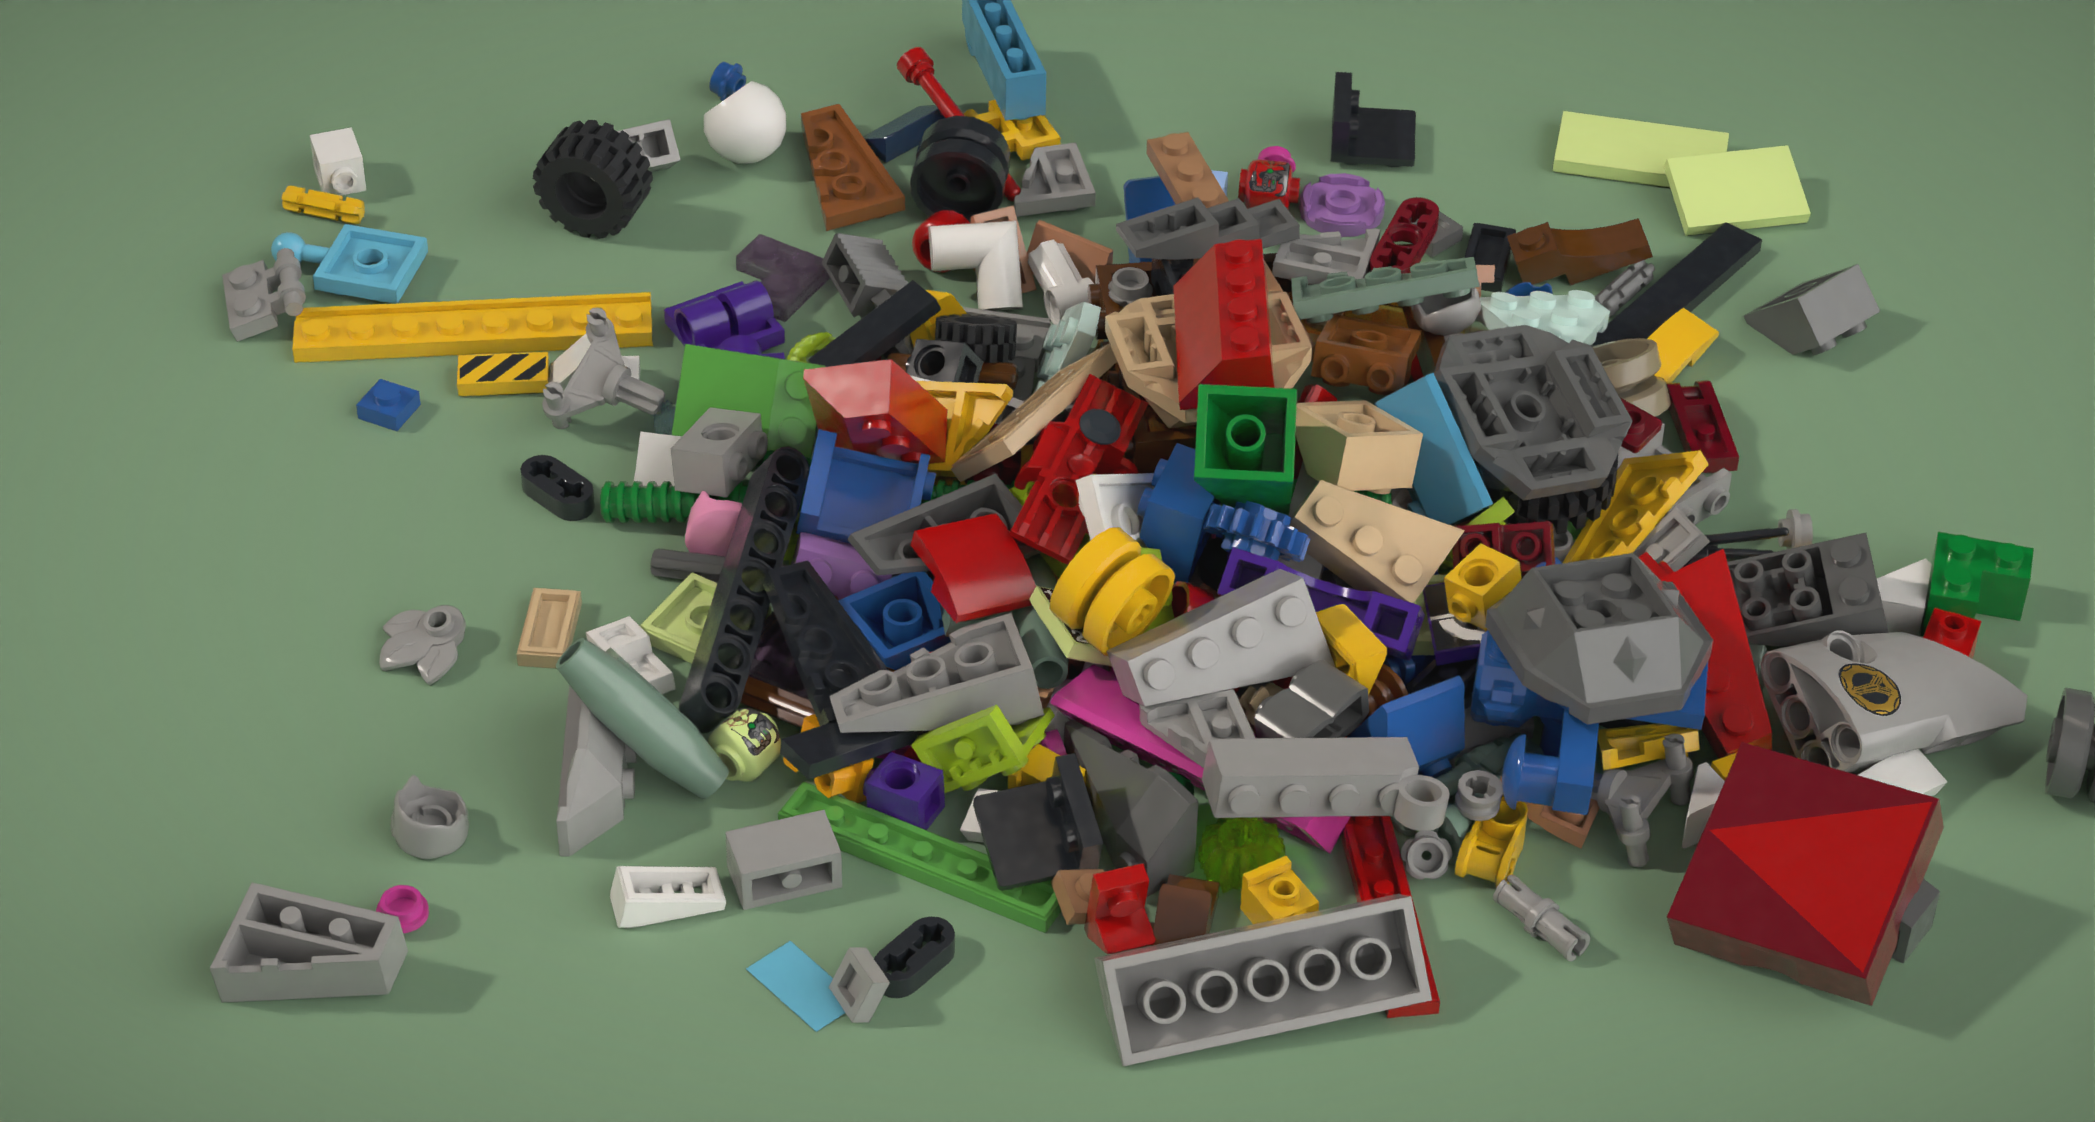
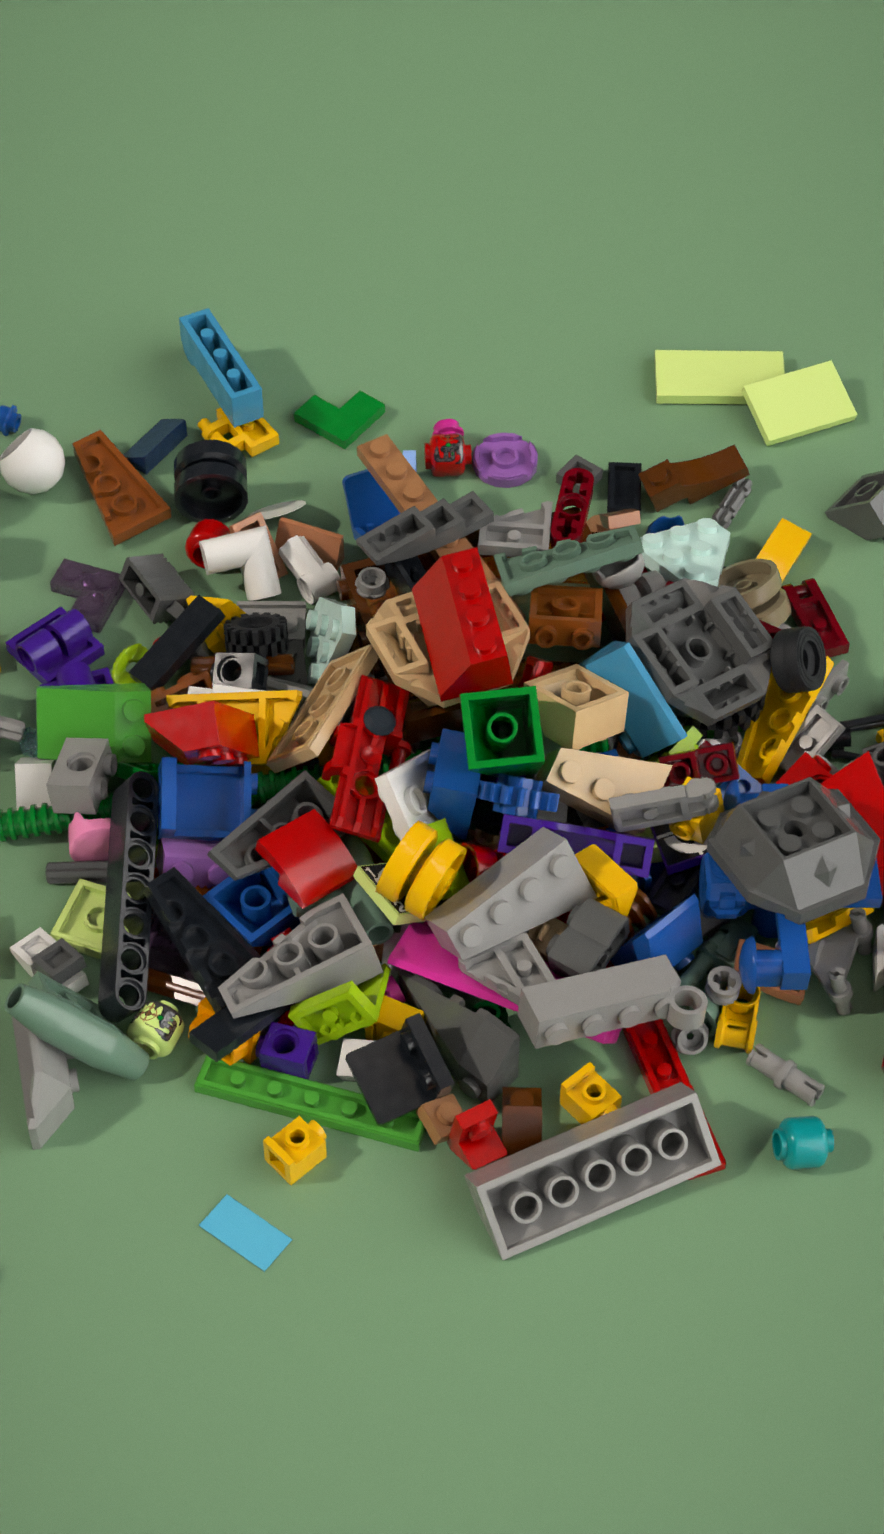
camera: 10 degrees left, 10 degrees up
(644, 650) = (59, 961): none -> dark grey plate
(648, 897) = (113, 1188): white slope -> none
(783, 859) = (208, 1127): light grey brick -> none
(859, 984) = (290, 1229): light grey plate -> none
(887, 900) = (292, 1158): none -> yellow brick
(918, 69) = (157, 392): red piece -> none
(920, 960) = (332, 1198): black beam -> none
(1044, 215) = (280, 508): none -> white sticker
(1055, 182) = (282, 474): light grey wing -> none
(1129, 134) = (343, 424): none -> green tile
(1238, 847) = (552, 1063): clear neon green gear -> none
(1369, 134) = (513, 392): black bracket -> none
(1440, 566) = (664, 805): none -> light grey hinge
(1544, 991) = (802, 1142): none -> teal head
(1658, 444) = (798, 659): none -> black tyre
(1684, 284) = (774, 498): black tile -> none

